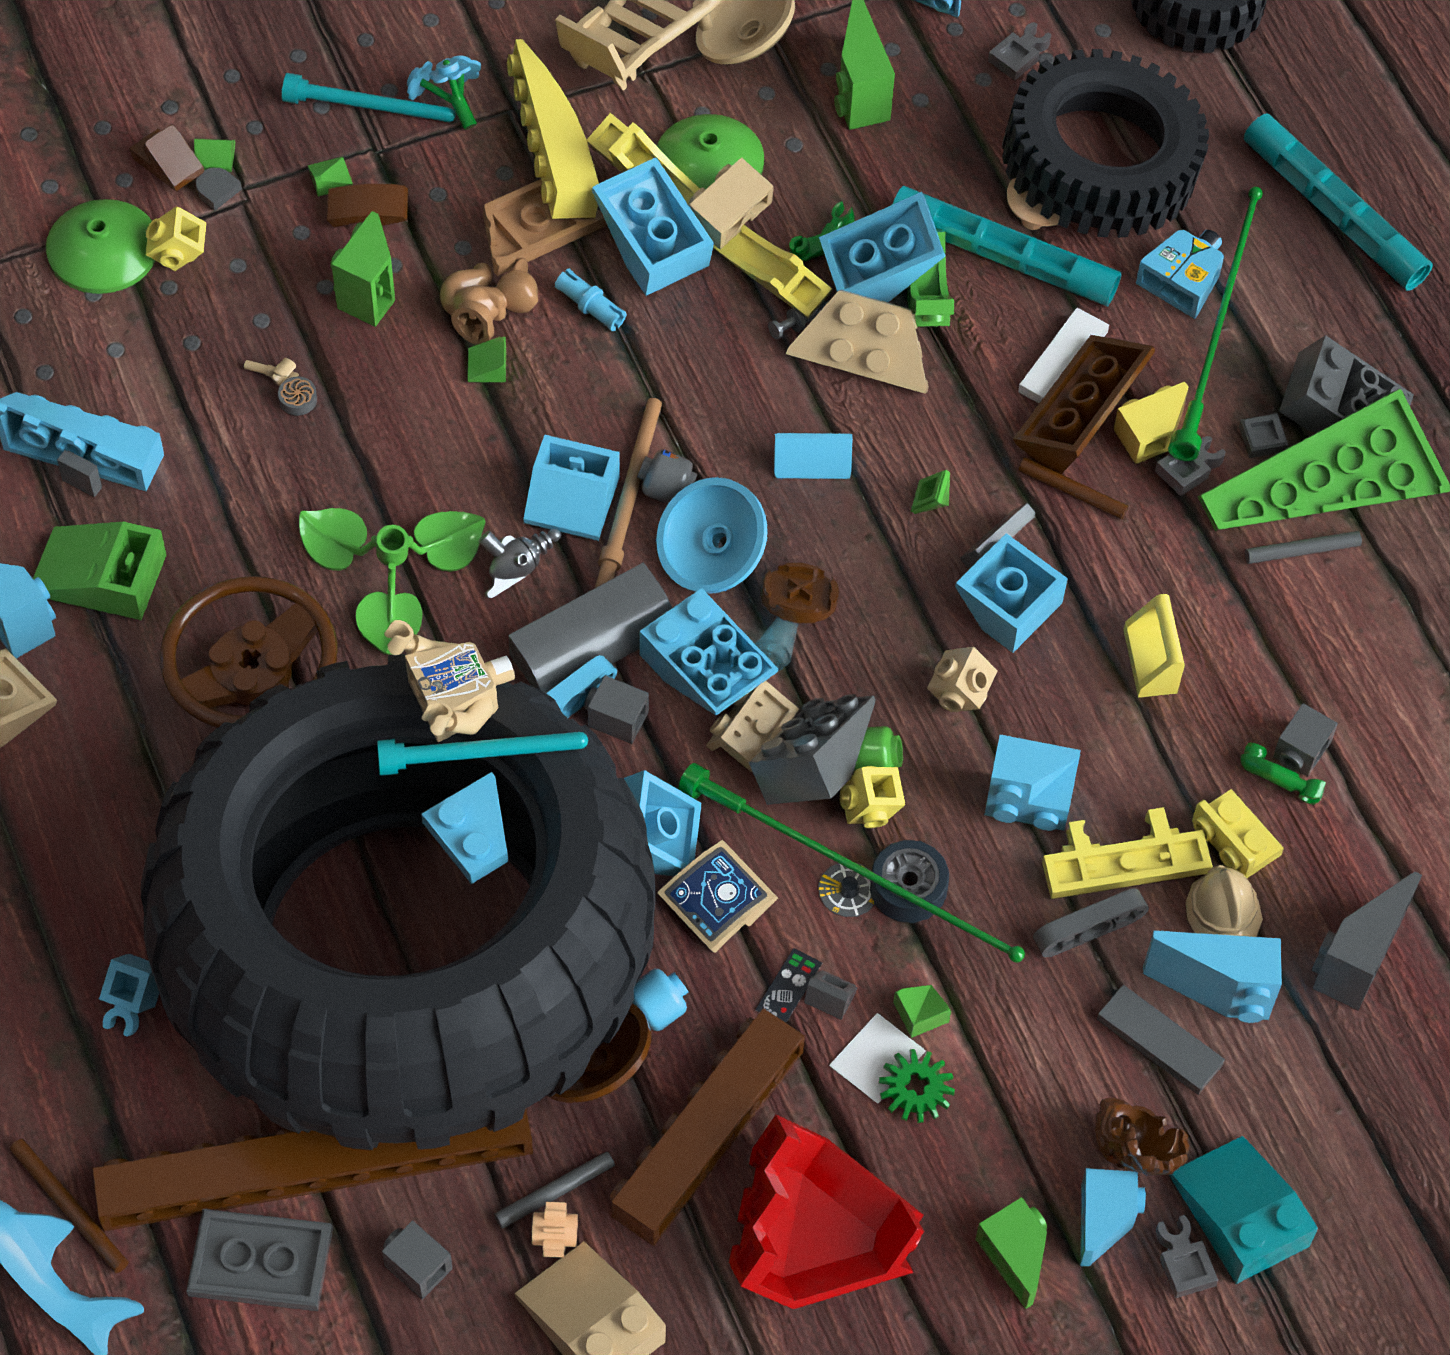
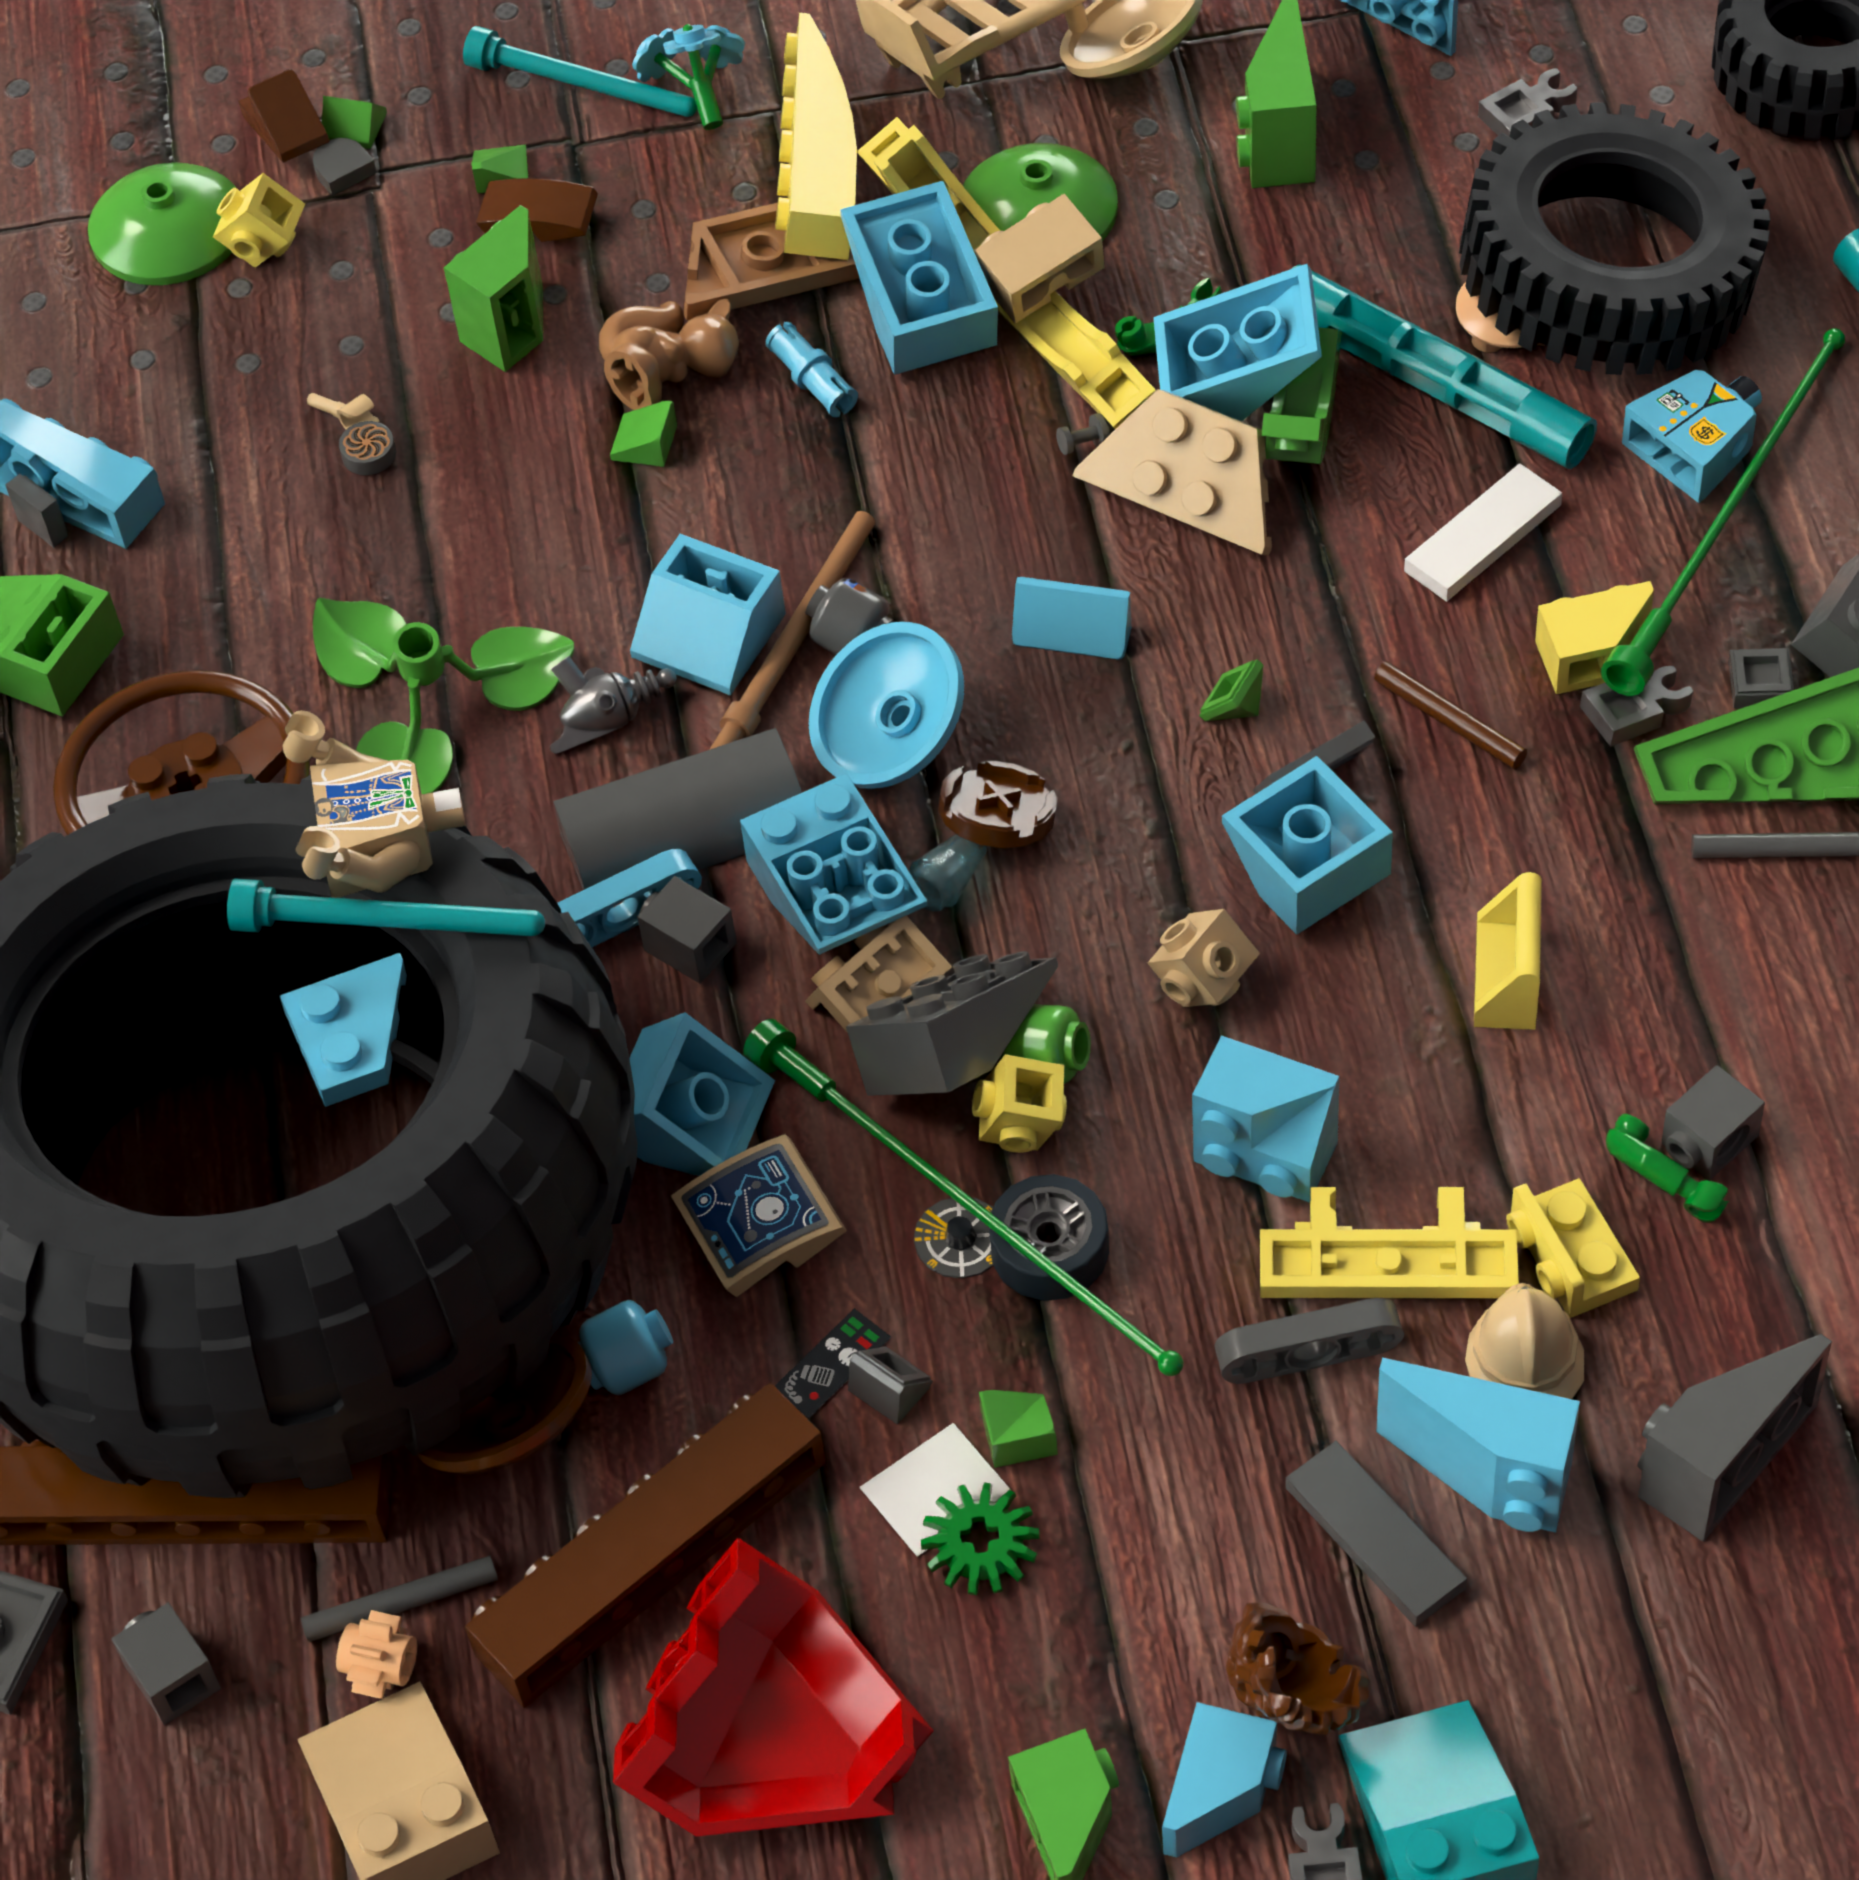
camera: 20 degrees right, 5 degrees down
(1081, 400) = (1490, 592): reddish brown slope -> none

